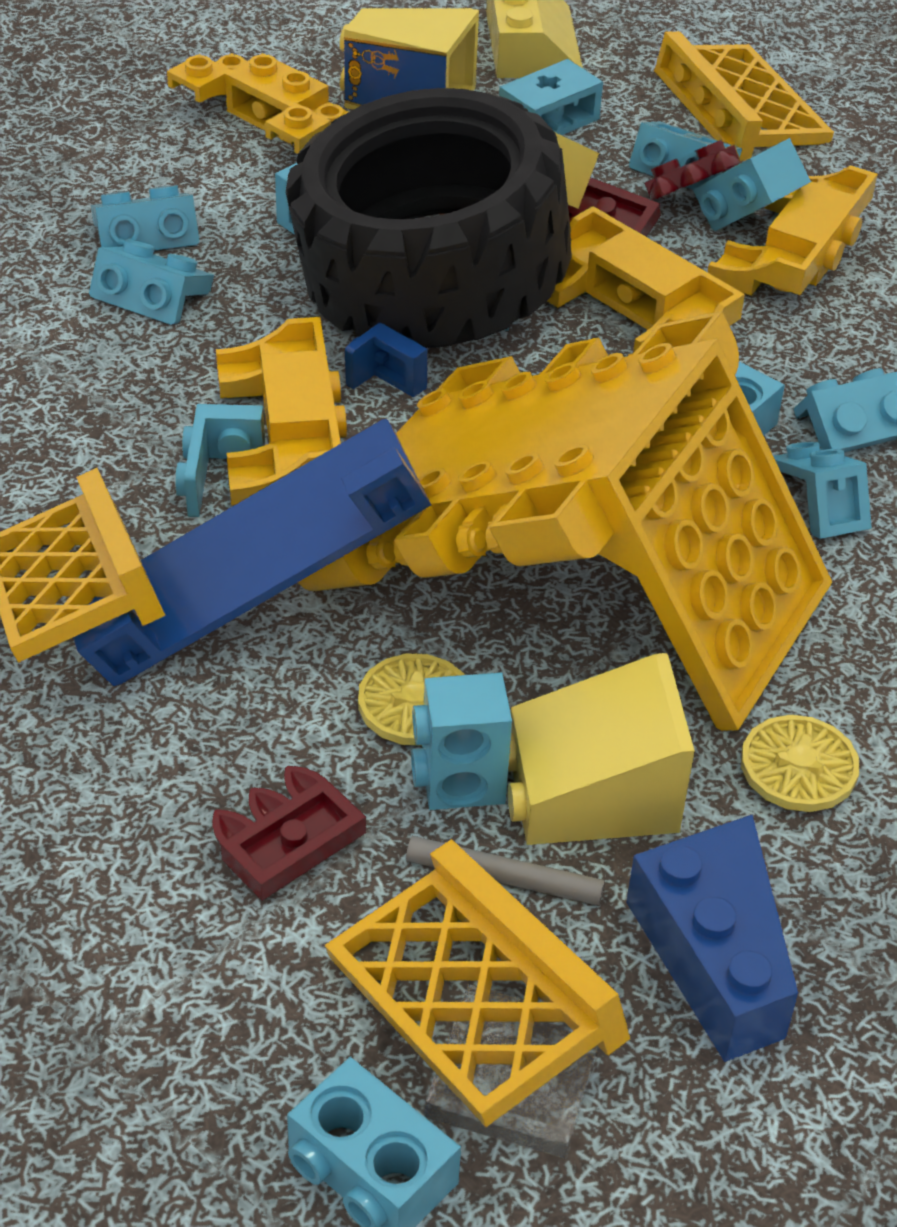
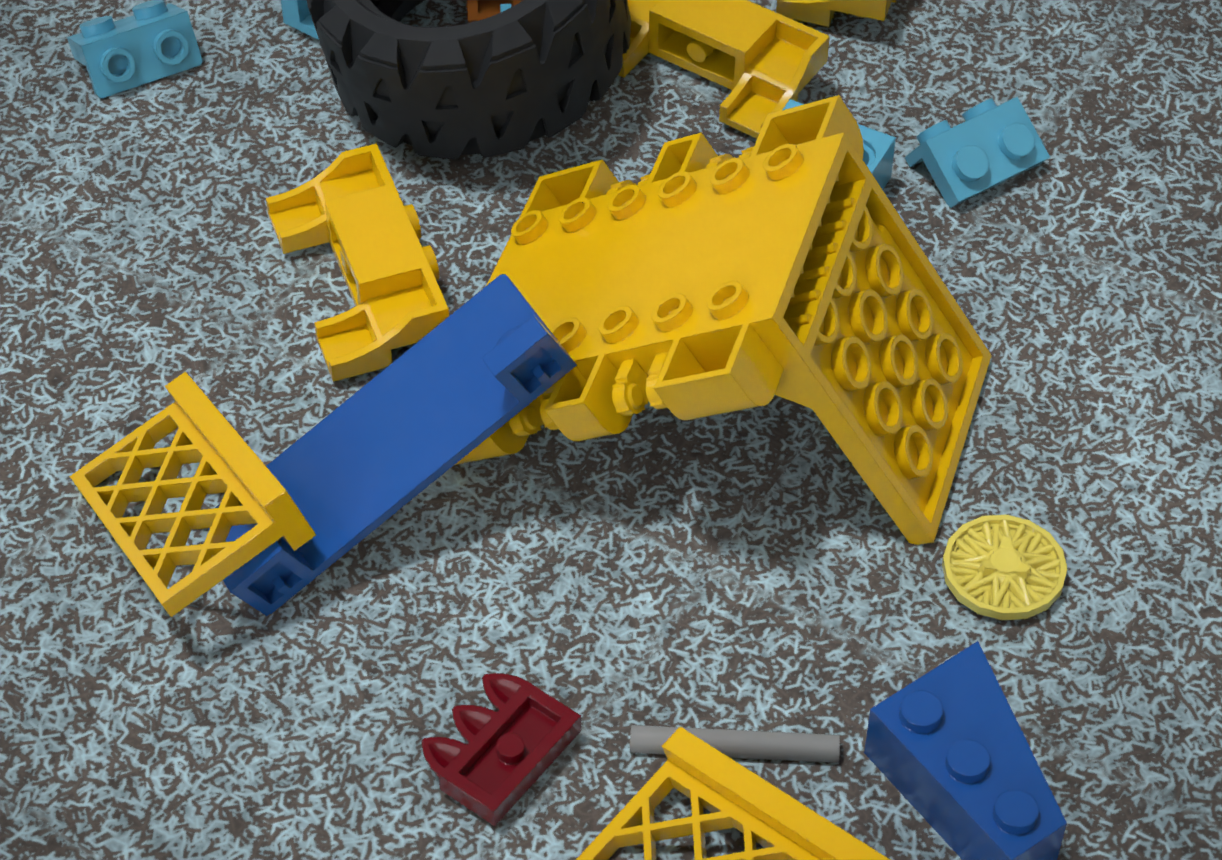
camera: 10 degrees left, 5 degrees up
(146, 282) = (160, 123): medium azure bracket -> none
(213, 434) = (299, 300): medium azure bracket -> none
(389, 357) = (460, 174): blue bracket -> none
(393, 690) = (592, 571): light yellow wheel -> none
(463, 741) = (664, 615): medium azure brick -> none
(602, 757) = (806, 603): light yellow slope -> none
(834, 488) = (972, 245): medium azure bracket -> none

